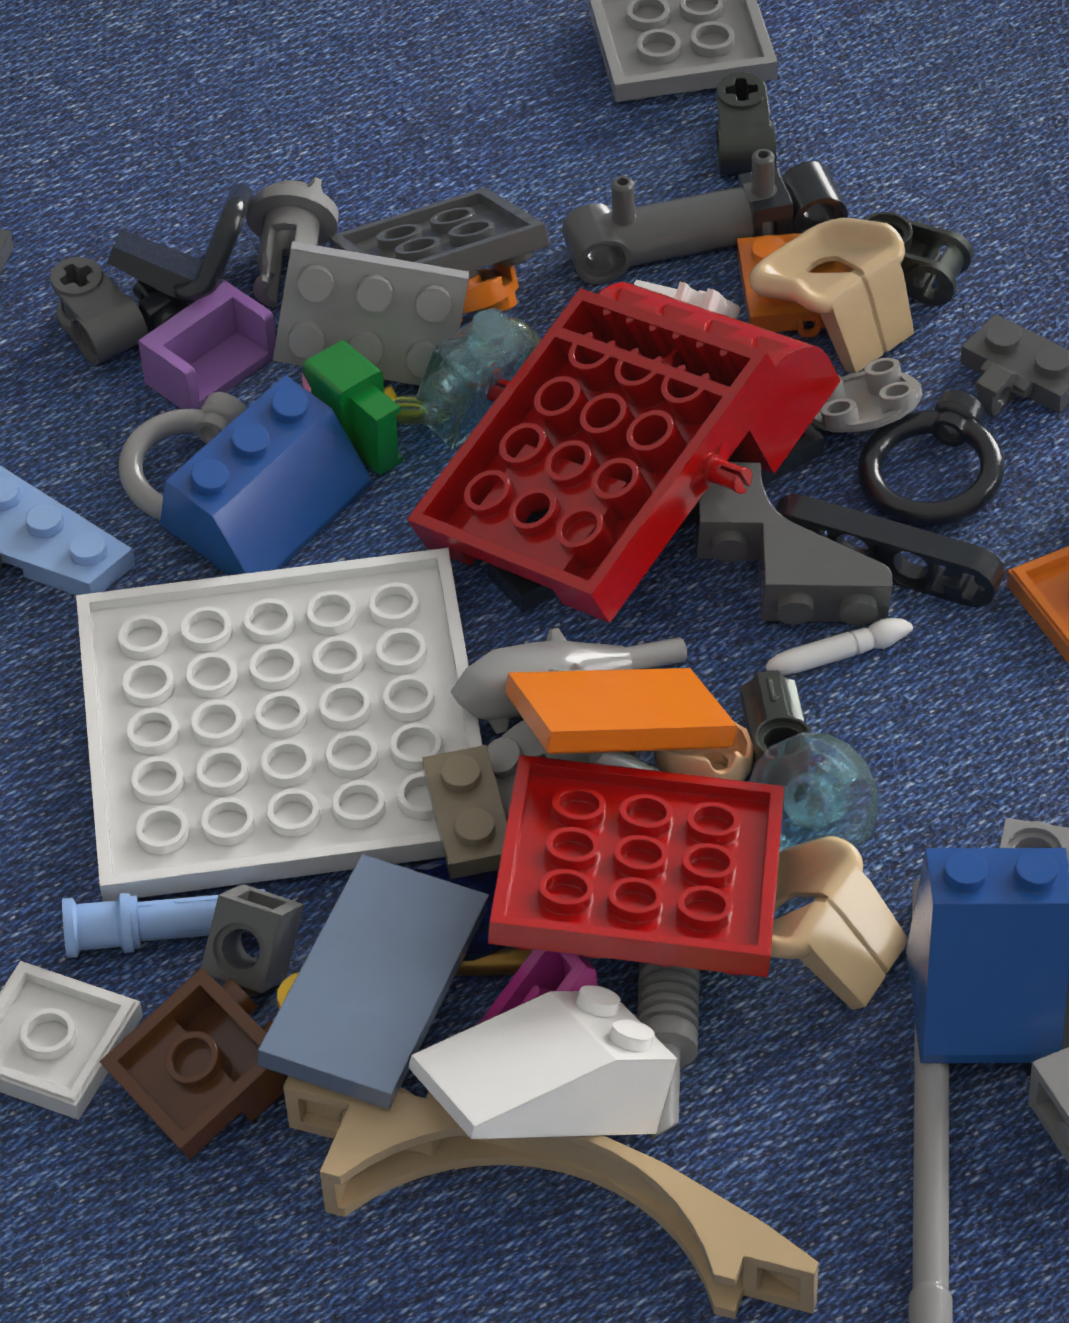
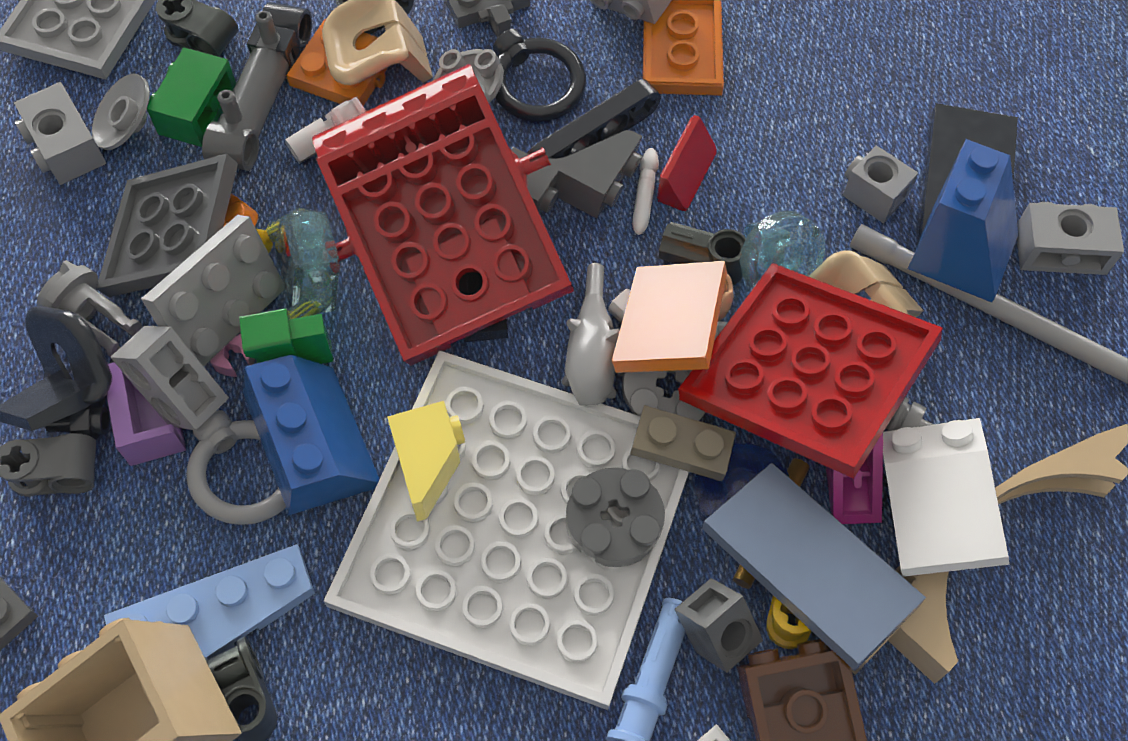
camera: 65 degrees left, 15 degrees up
(239, 332) = (170, 377): none -> light grey brick
(288, 583) = (427, 452): none -> light yellow slope
(322, 758) = (597, 537): none -> dark grey plate
(503, 102) = (59, 133): none -> light grey brick
(570, 137) = (121, 112): none -> light grey dish
(658, 162) = (189, 96): none -> green brick
(906, 664) = (686, 166): none -> red slope

